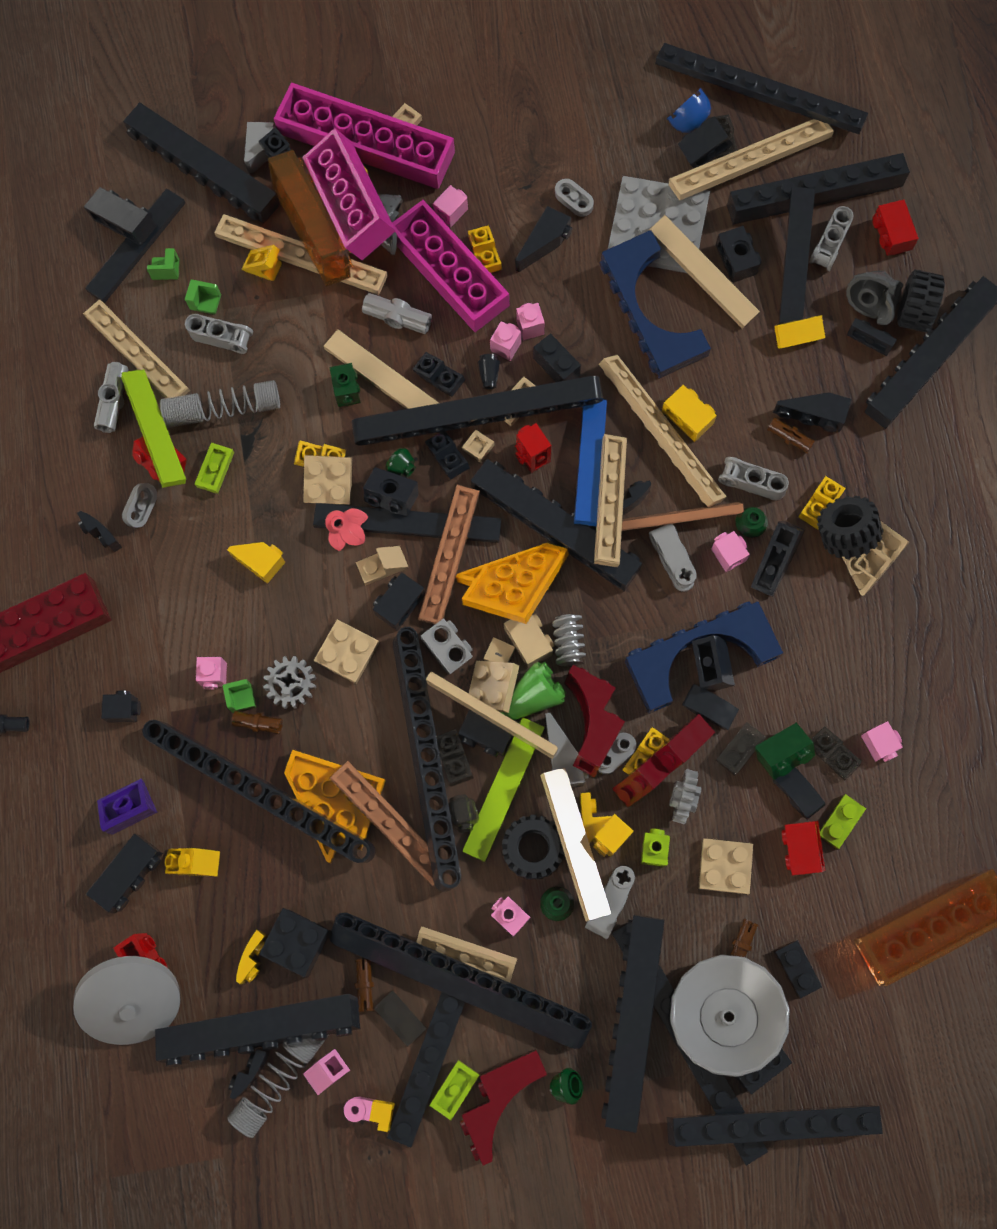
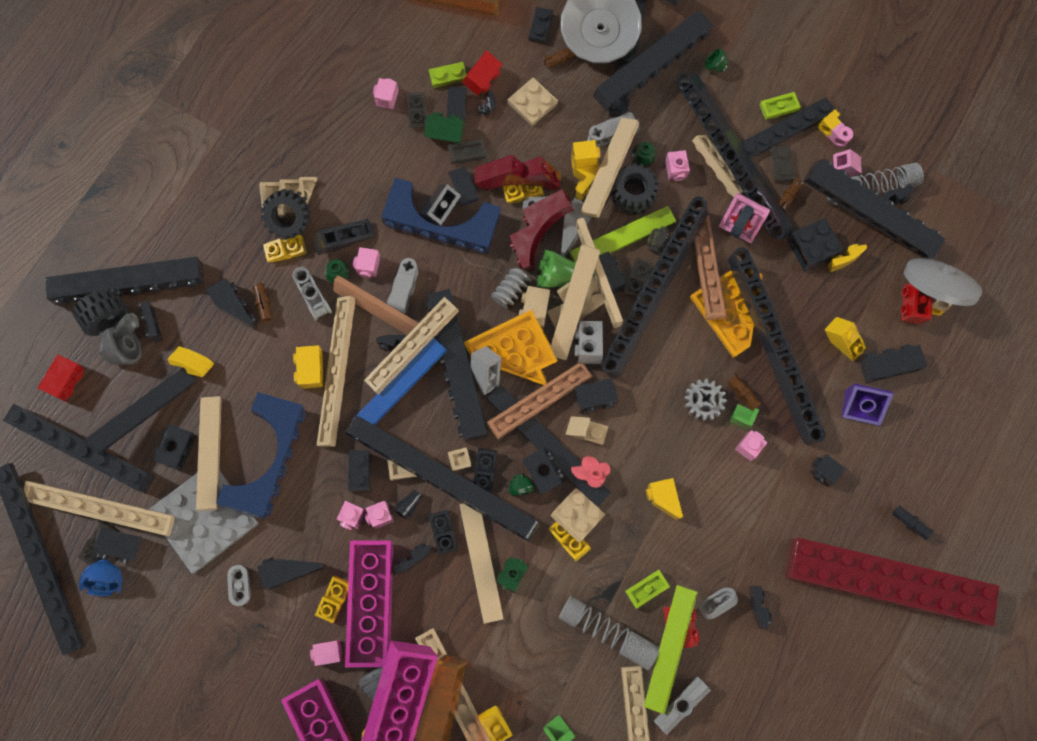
camera: 145 degrees left, 0 degrees up
(233, 337) = (563, 680): light grey piece -> none
(346, 651) = (653, 393): tan plate -> none
(391, 906) = (744, 218): none -> bright pink plate
(396, 313) = (434, 600): light grey piece -> none
(443, 330) = (419, 554): none -> black slope
(492, 666) = (574, 301): none -> tan tile
(500, 1086) = (754, 87): dark red arch -> none
(523, 537) = (486, 369): none -> light grey slope
(532, 447) = (429, 421): red brick -> none
(652, 857) = (564, 143): lime brick -> none
(685, 796) = (525, 144): light grey gear -> none
(765, 821) = (490, 104): none -> black arm
(827, 250) = (118, 399): light grey piece -> none

